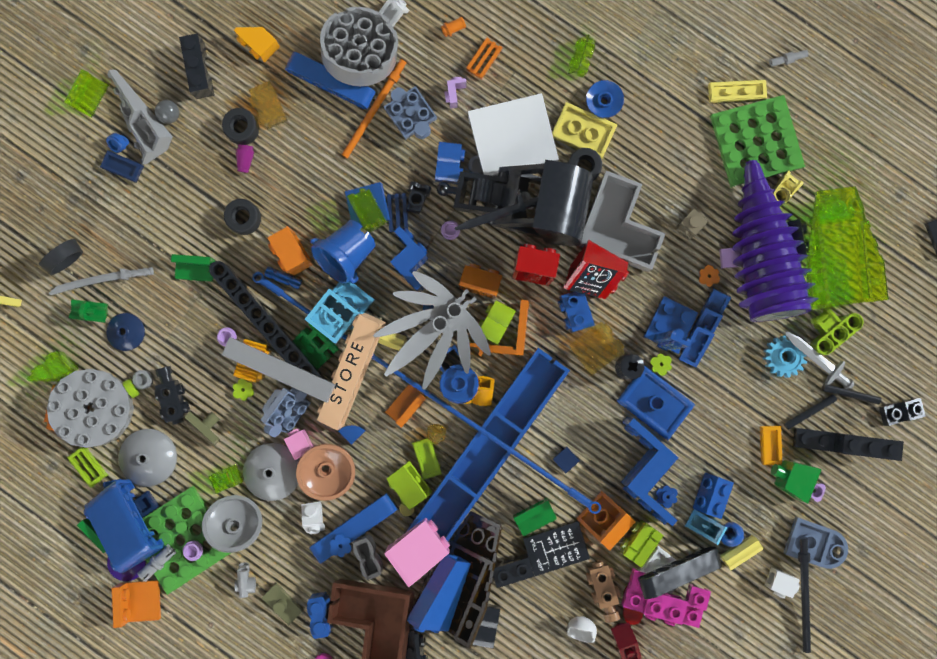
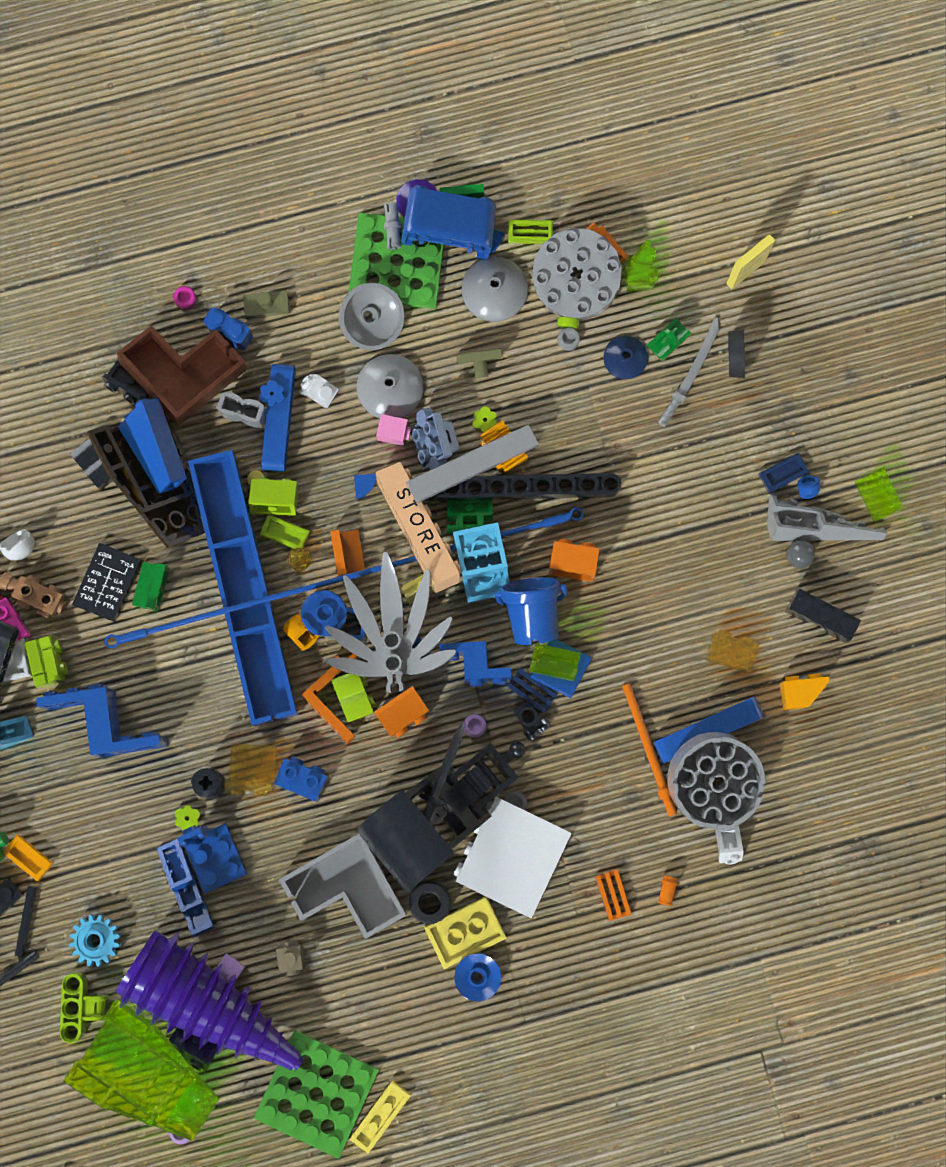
camera: 135 degrees right, 5 degrees down
(135, 602) = (374, 182): orange bracket -> none
(146, 503) = (454, 256): dark blue tile -> none
(174, 398) = (525, 353): black brick -> none
(192, 267) = (634, 463): green panel -> none
(192, 550) = (377, 264): lavender plate -> none
(224, 334) = (546, 442): lavender plate -> none
(225, 479) = (416, 341): clear neon green slope -> none
(230, 216) = (654, 534): black tyre -> none
(232, 117) = (725, 623): black tyre -> none
(244, 157) = (700, 591): magenta cone -> none
(244, 584) = (311, 285): light grey plate -> none
(283, 277) = (562, 533): blue axle -> none
(328, 483) = (337, 426): nougat dish -> none
(410, 113) = (613, 777): sand blue piece -> none
(417, 551) = (208, 455): bright pink slope -> none
(448, 162) = (538, 776): blue brick -> none
(450, 95) = (602, 832): lavender bracket -> none
(512, 570) = (121, 526): black brick -> none
(535, 265) = (370, 770): red brick -> none
(566, 459) = (177, 657): dark blue tile -> none
(584, 48) = (545, 999): clear neon green hinge -> none
(595, 272) = (321, 824): red slope -> none
(608, 524) = (87, 648): orange slope -> none
(656, 403) = (156, 783): blue piece -> none
(662, 493) = (72, 720): blue plant -> none
(709, 270) = (222, 936): orange plant -> none
(713, 495) = (29, 763): blue bracket -> none
(787, 187) = (248, 1082): light yellow piece -> none
(833, 371) = (42, 974): light grey sword -> none

